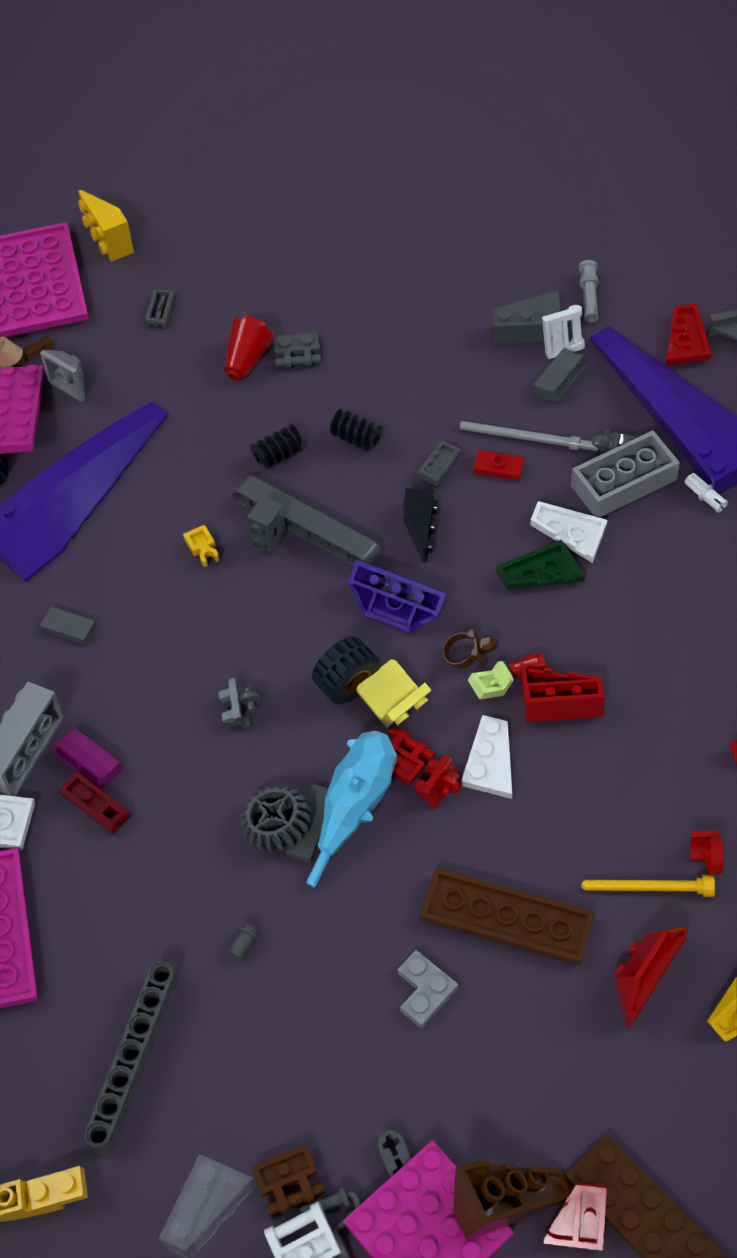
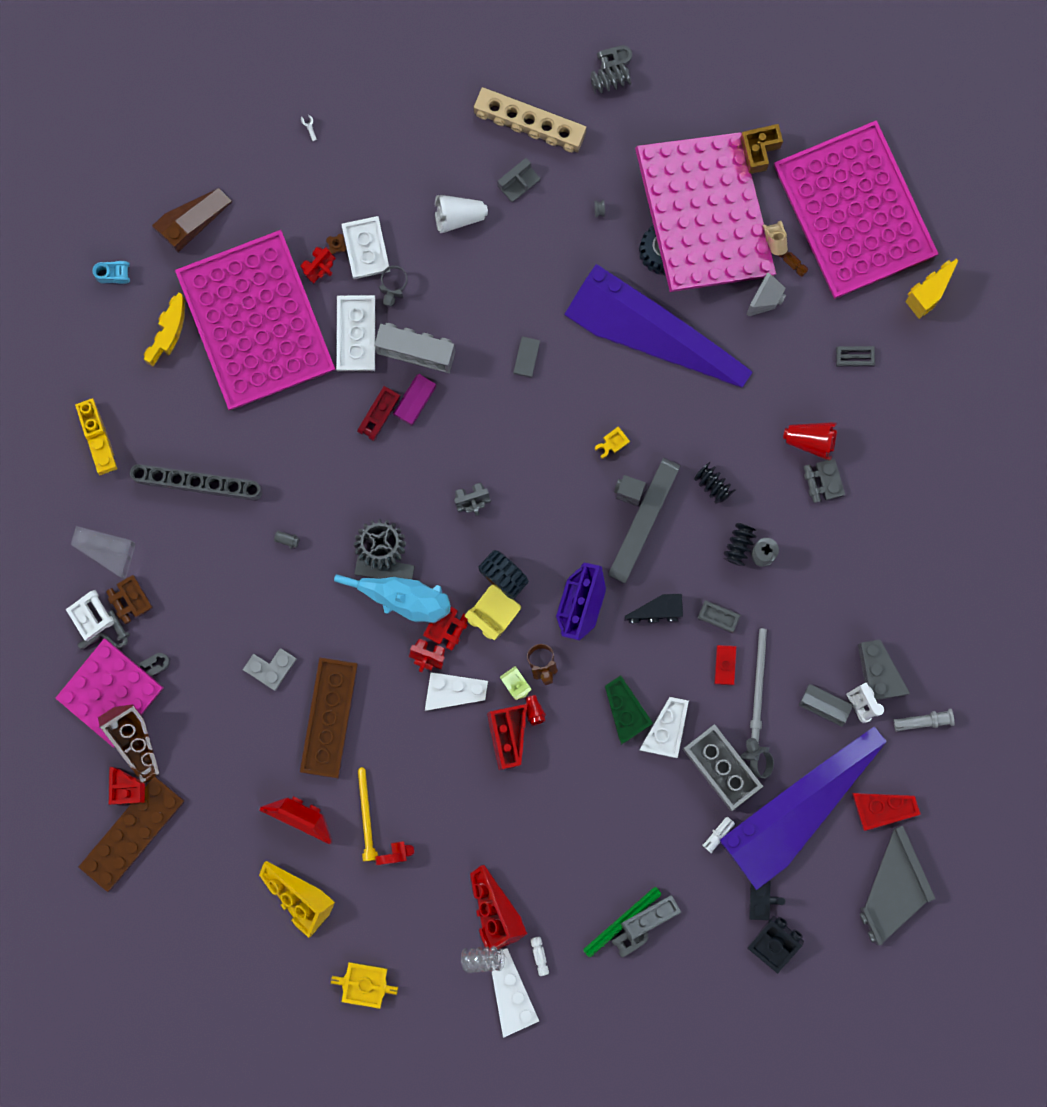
camera: 80 degrees right, 25 degrees up
(371, 402) = (771, 549): none -> dark grey piece

